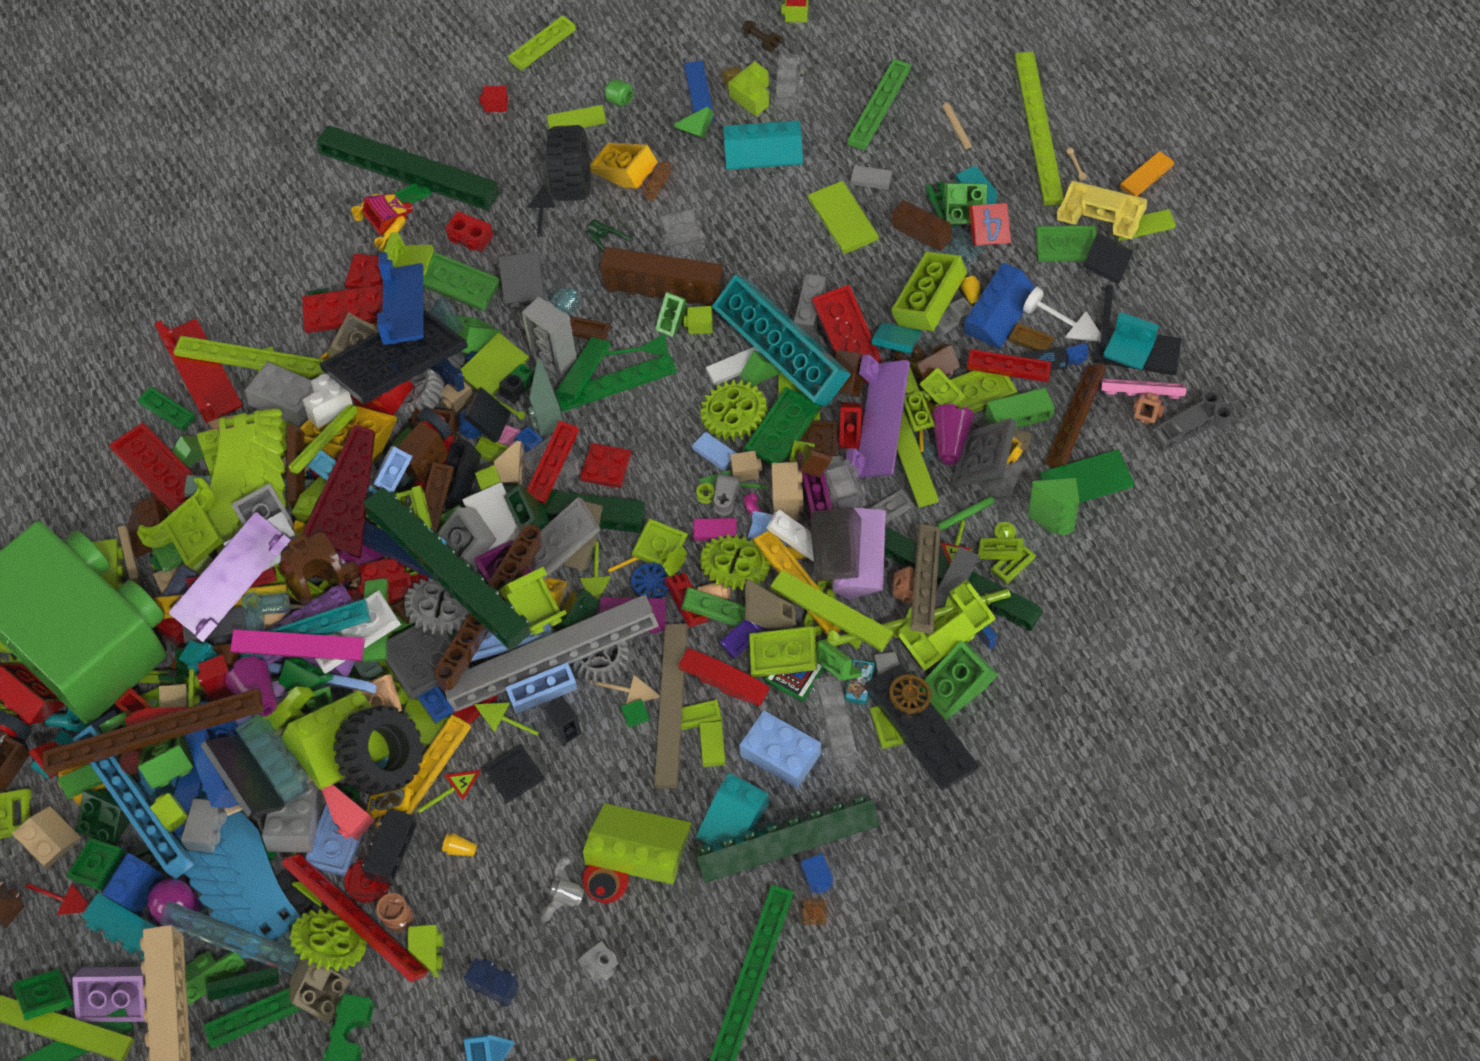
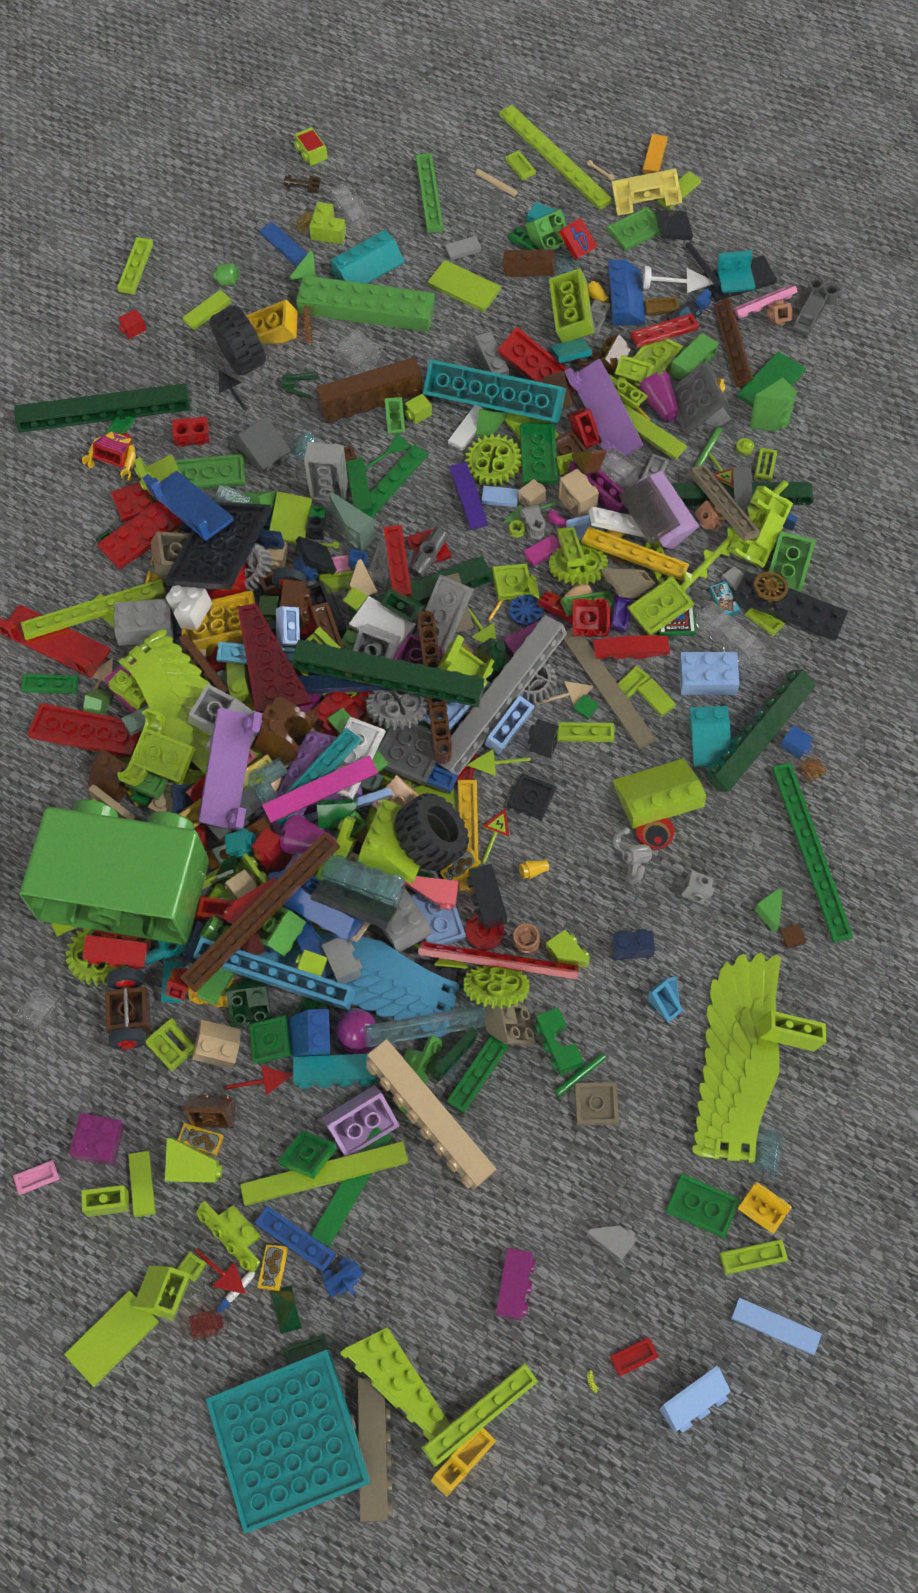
camera: 35 degrees left, 5 degrees up
(323, 439) = (212, 634): lime axle -> none
(583, 475) = (423, 560): none -> dark grey piece
(615, 738) = (585, 732): none -> lime tile
(656, 1030) = (770, 909): none -> bright green slope
(681, 433) = (468, 496): none -> dark purple slope
(702, 623) = (590, 617): none -> red slope
(730, 187) = (366, 303): none -> bright green brick
(737, 540) = (571, 547): none -> lime tile
(832, 610) = (675, 559): lime tile -> none
(836, 661) = (704, 591): bright green panel -> none
(995, 119) = (520, 165): none -> lime tile
(1001, 552) = (754, 460): lime tile -> none

